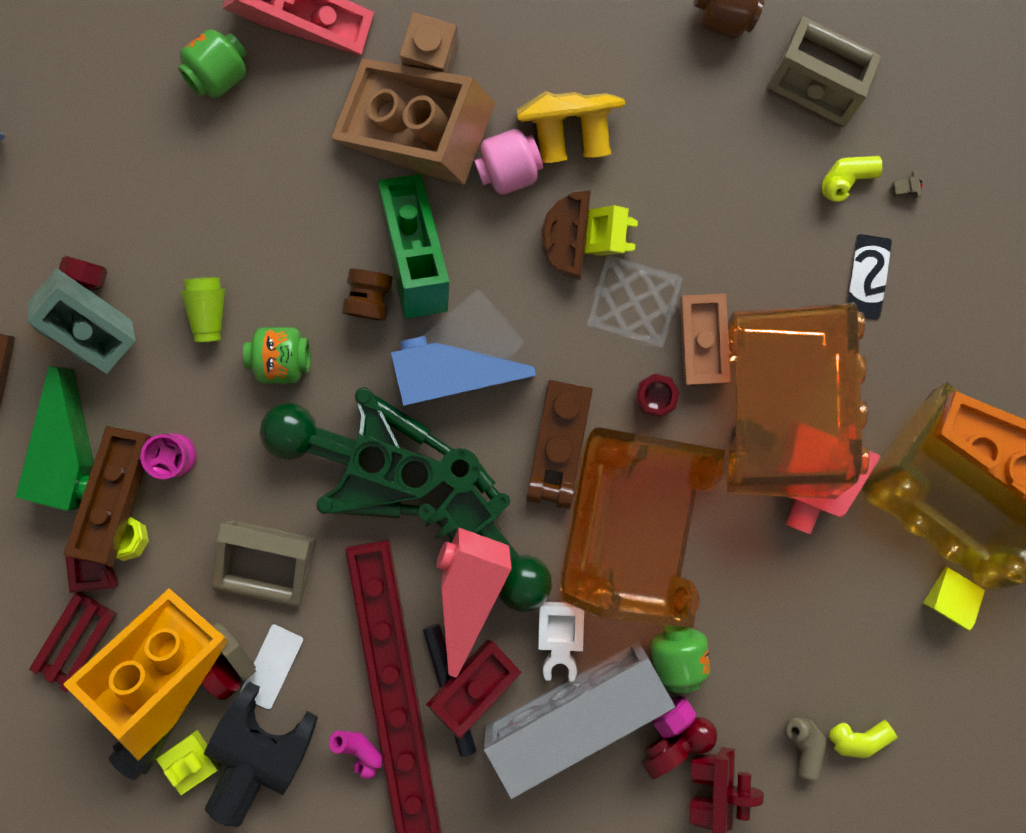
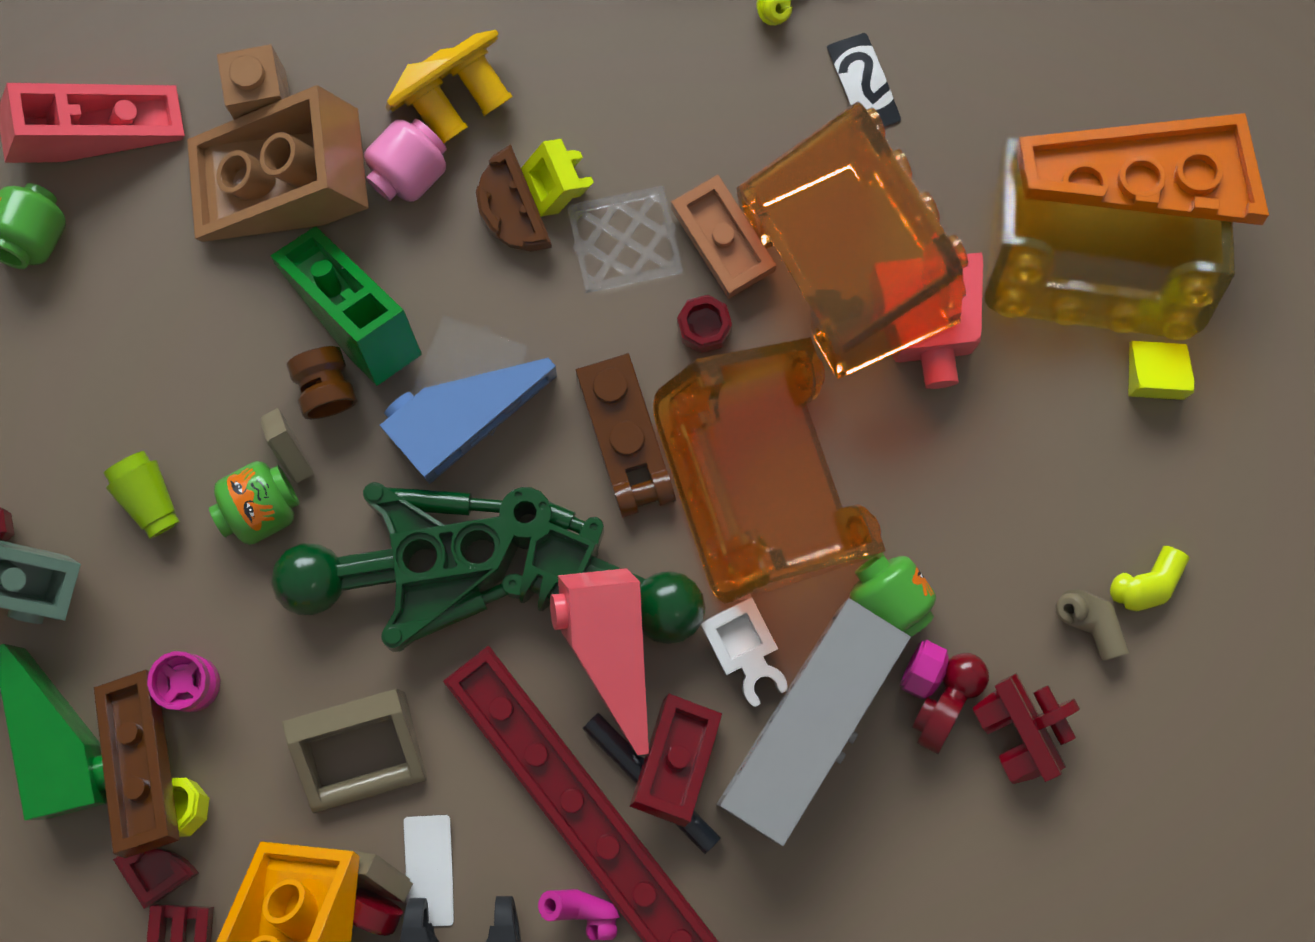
camera: 25 degrees left, 10 degrees down
(320, 324) = (285, 445): none -> dark tan tile

